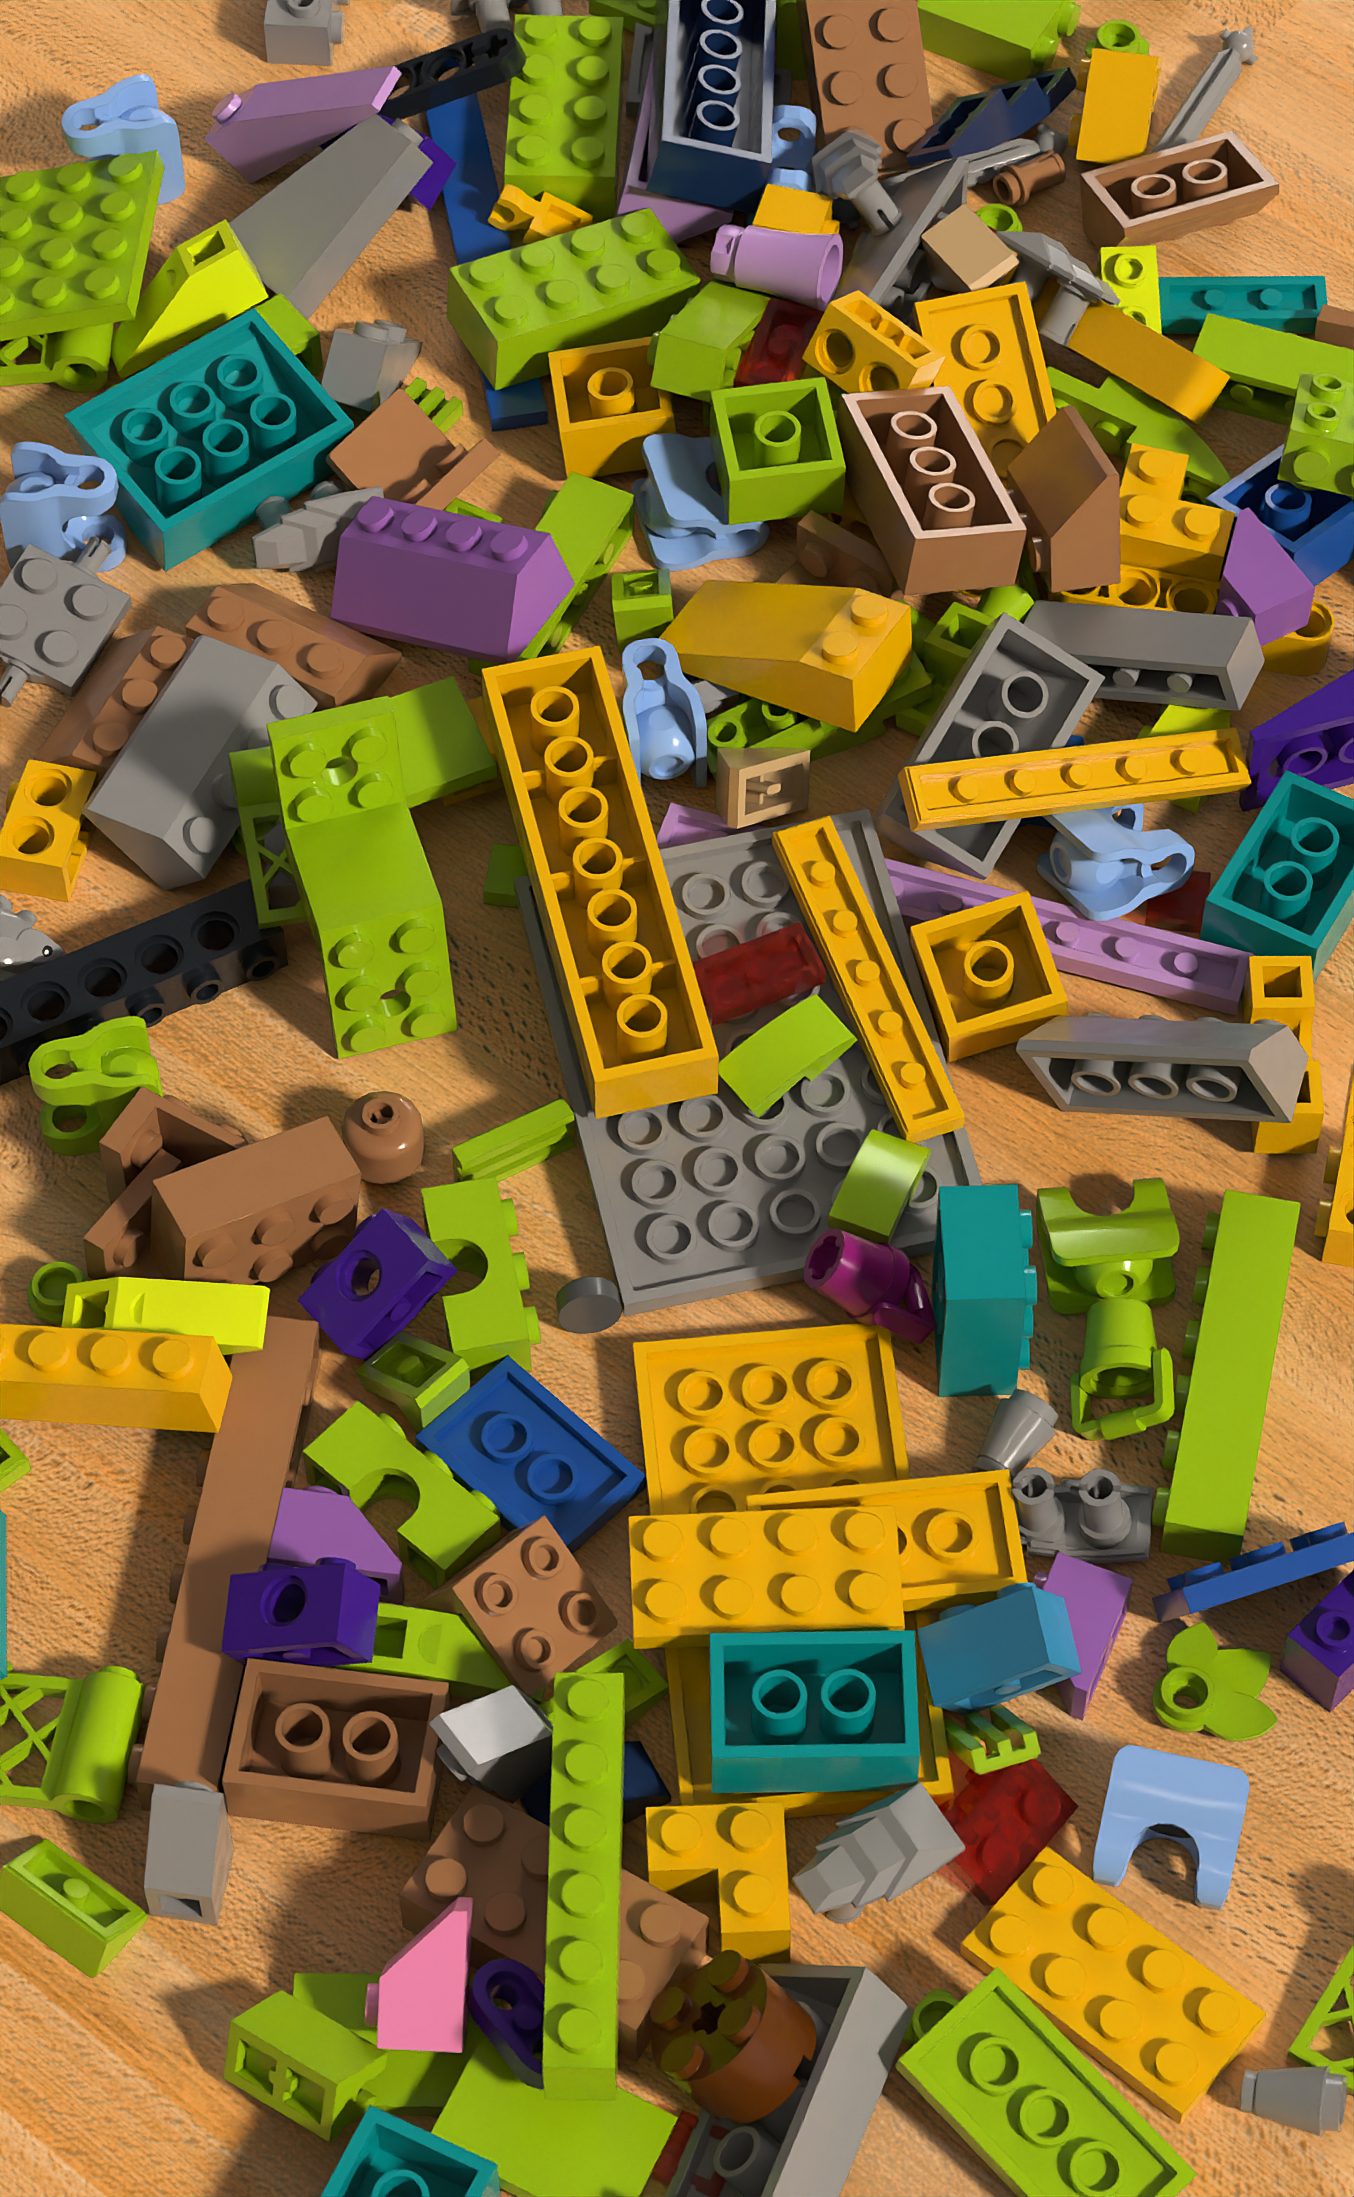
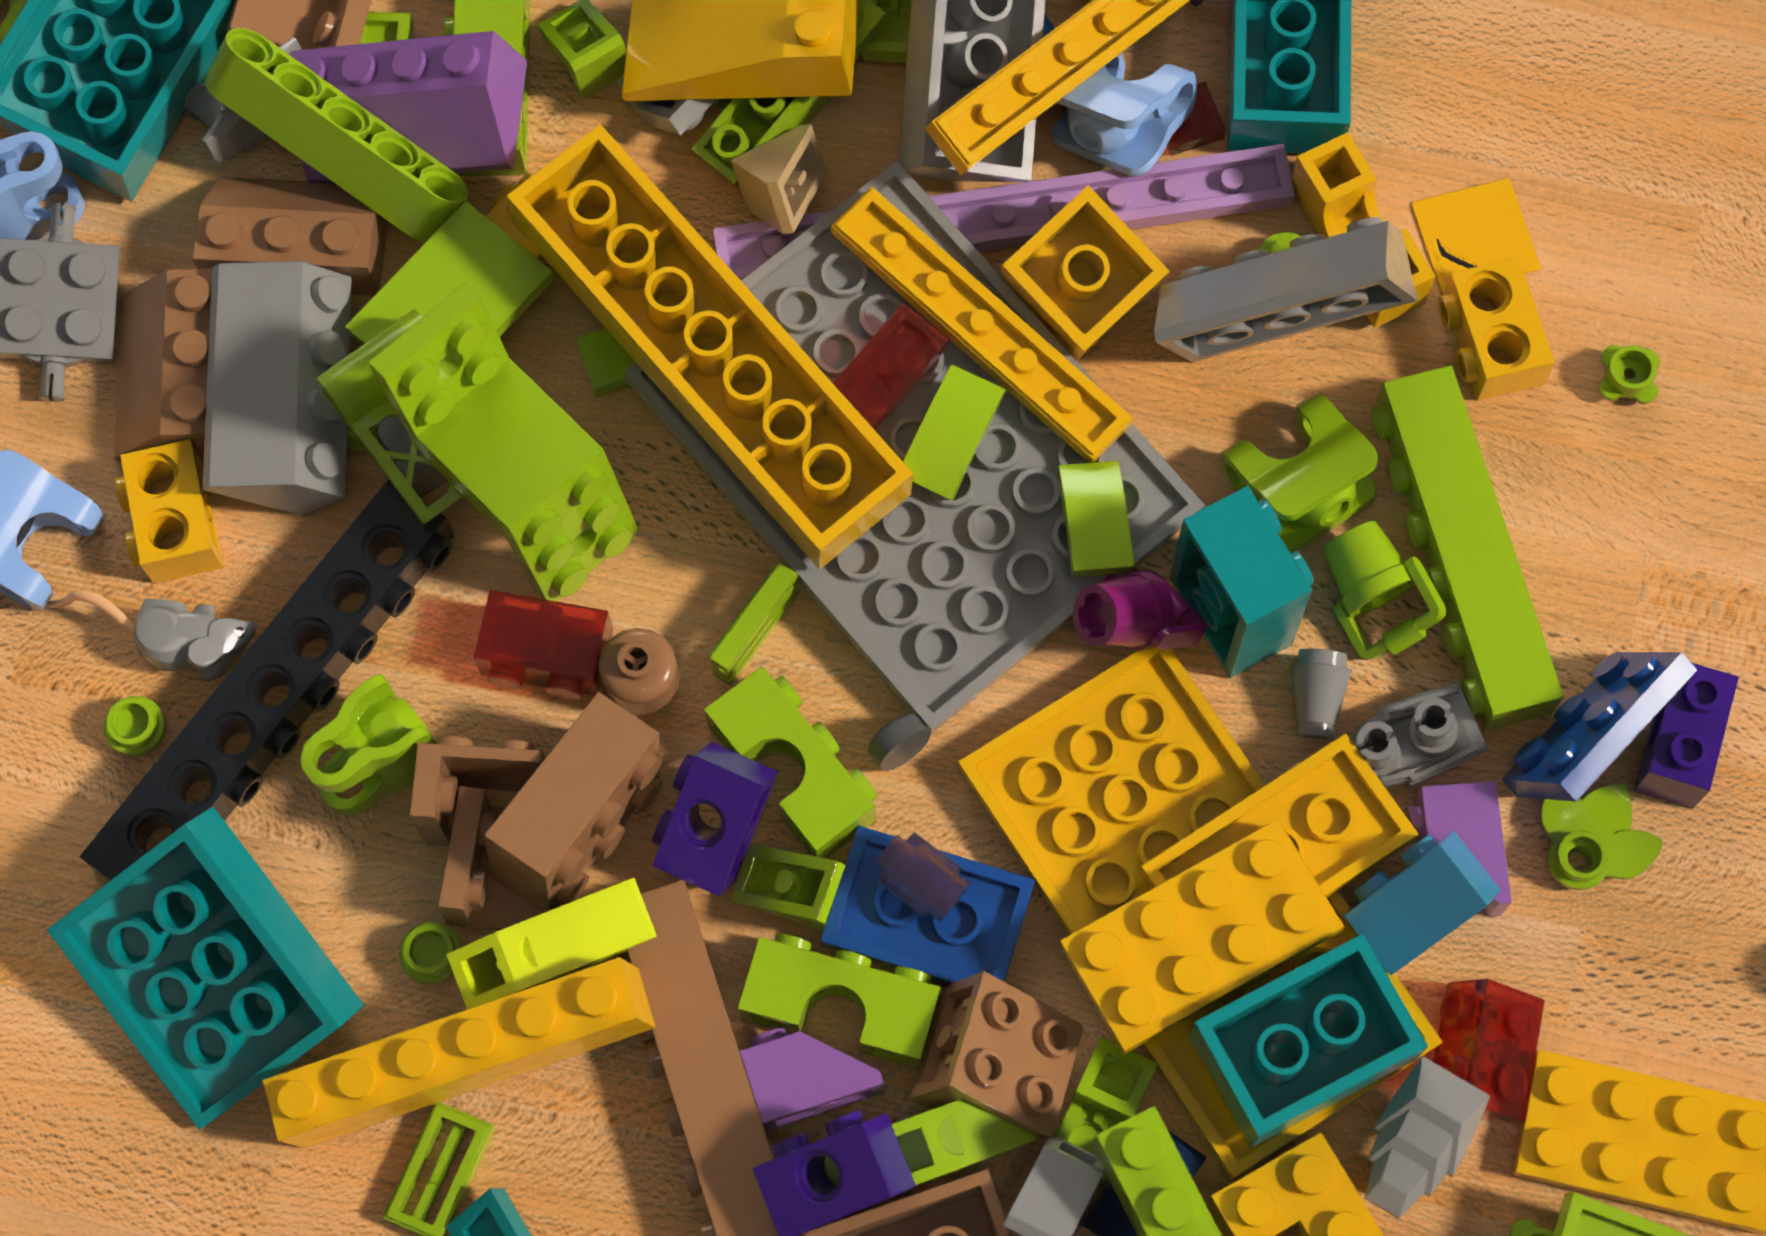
camera: 25 degrees left, 15 degrees up
(305, 1072) = (542, 644): none -> clear red brick
(366, 571) = (334, 134): none -> lime beam
(537, 1416) = (921, 876): none -> clear purple brick
(663, 715) = (674, 151): light blue piece -> none
(999, 1737) = (1458, 961): lime tile -> none
(1177, 1800) = (1614, 960): light blue piece -> none

